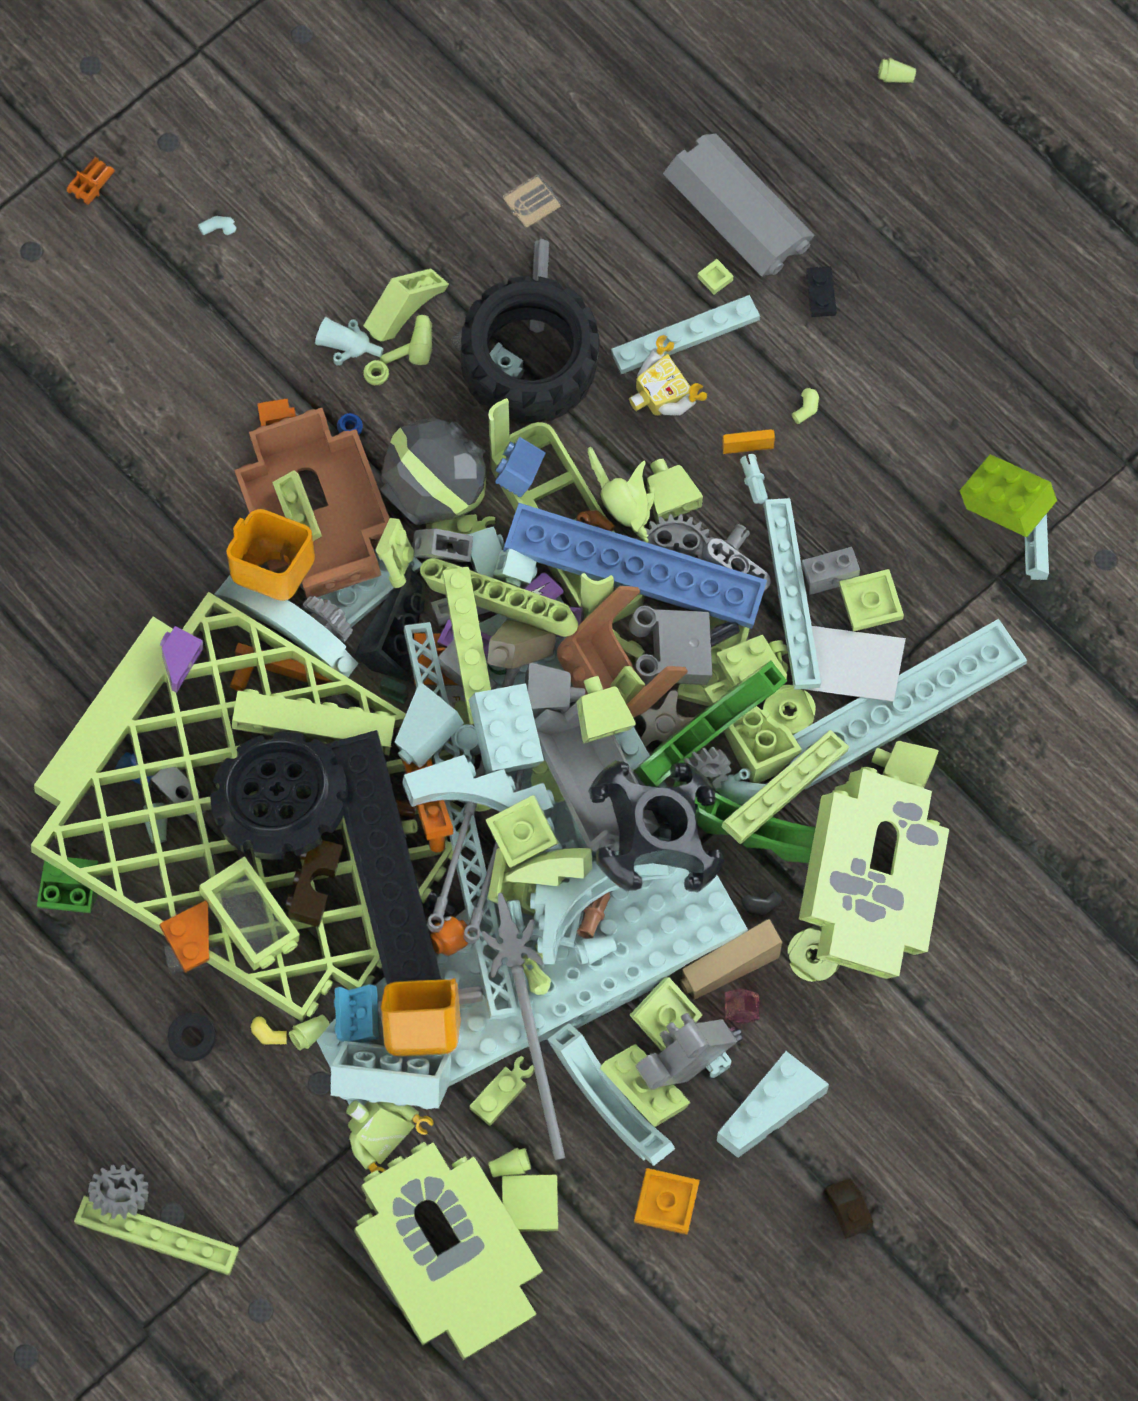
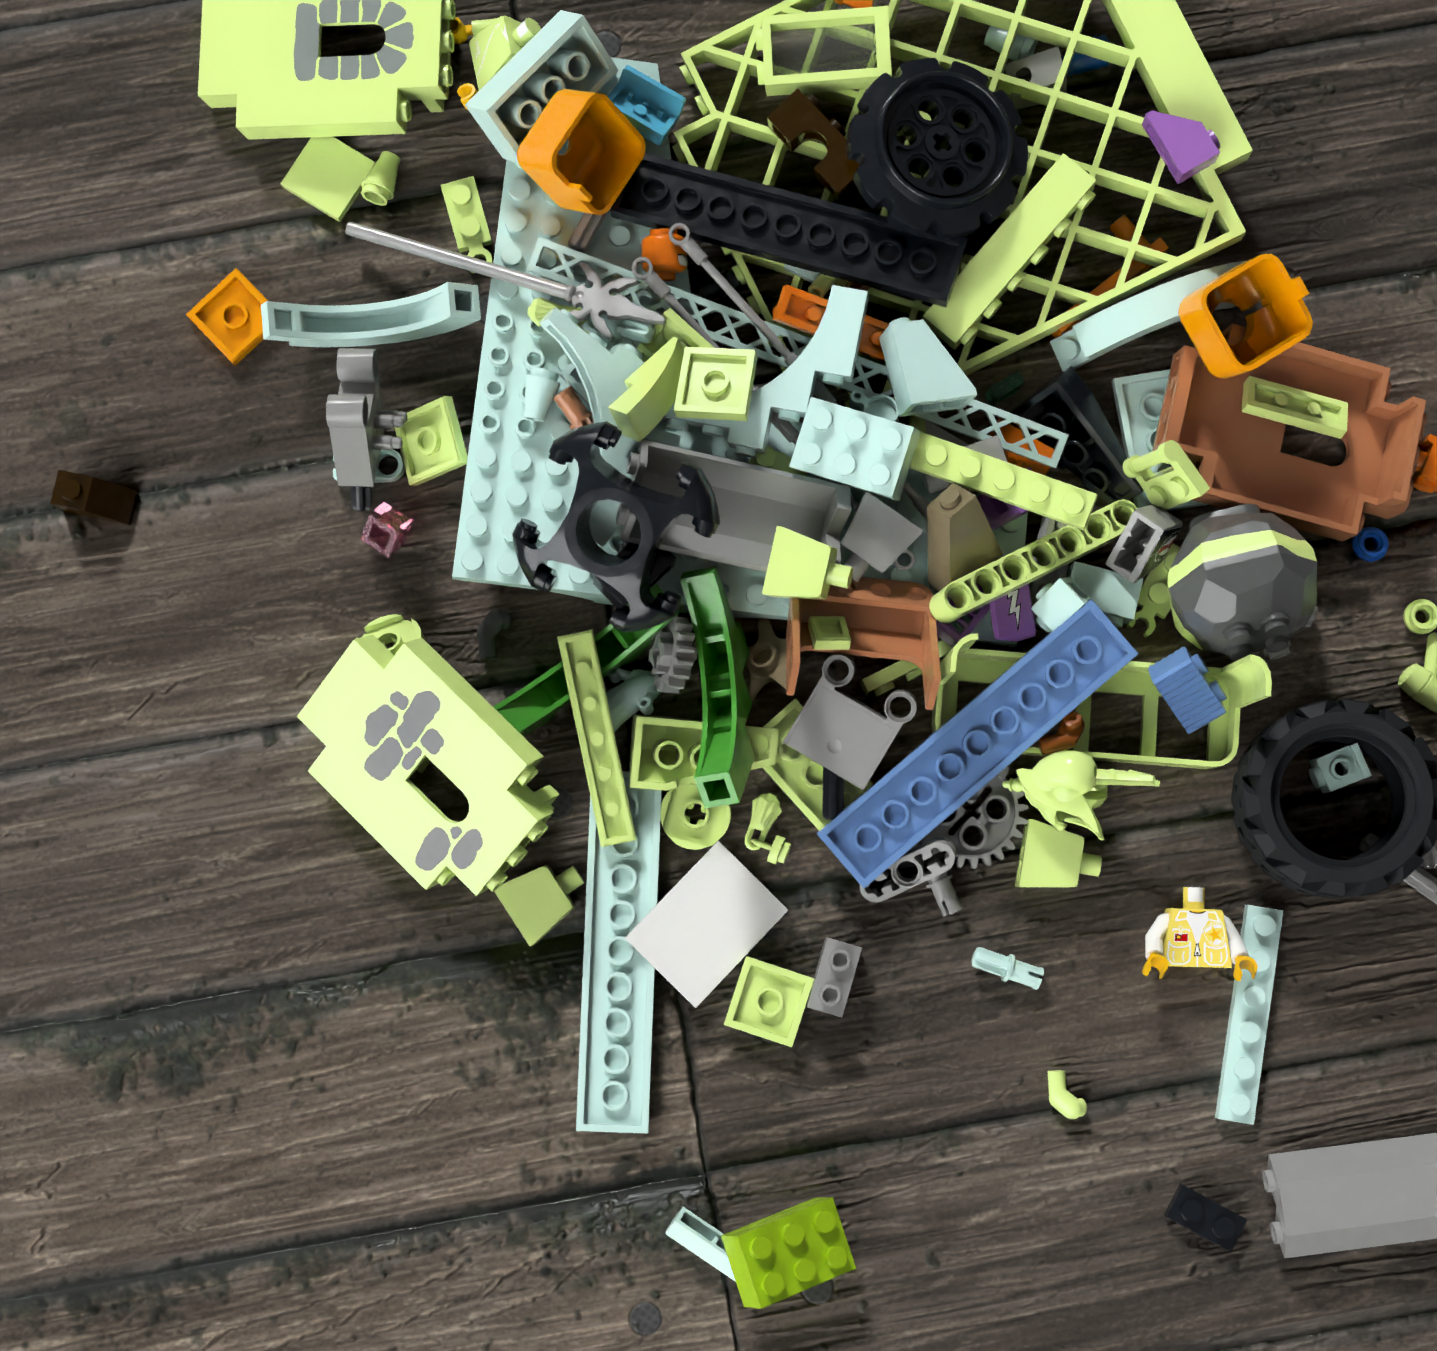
camera: 125 degrees right, 15 degrees up
(265, 1034) = (693, 16): light yellow arm -> none
(308, 1032) = (666, 58): yellowish green cone -> none
(329, 616) = (1134, 358): light grey gear -> none
(654, 1104) = (396, 354): yellowish green plate -> none
(715, 276) = (1303, 1099): yellowish green plate -> none
(732, 960) = (433, 587): tan slope -> none
(746, 658) = (773, 803): yellowish green plate -> none
(748, 441) = (1060, 992): light orange tile -> none
(776, 1099) = (258, 494): light aqua wedge -> none
(792, 594) = (834, 912): light aqua plate -> none

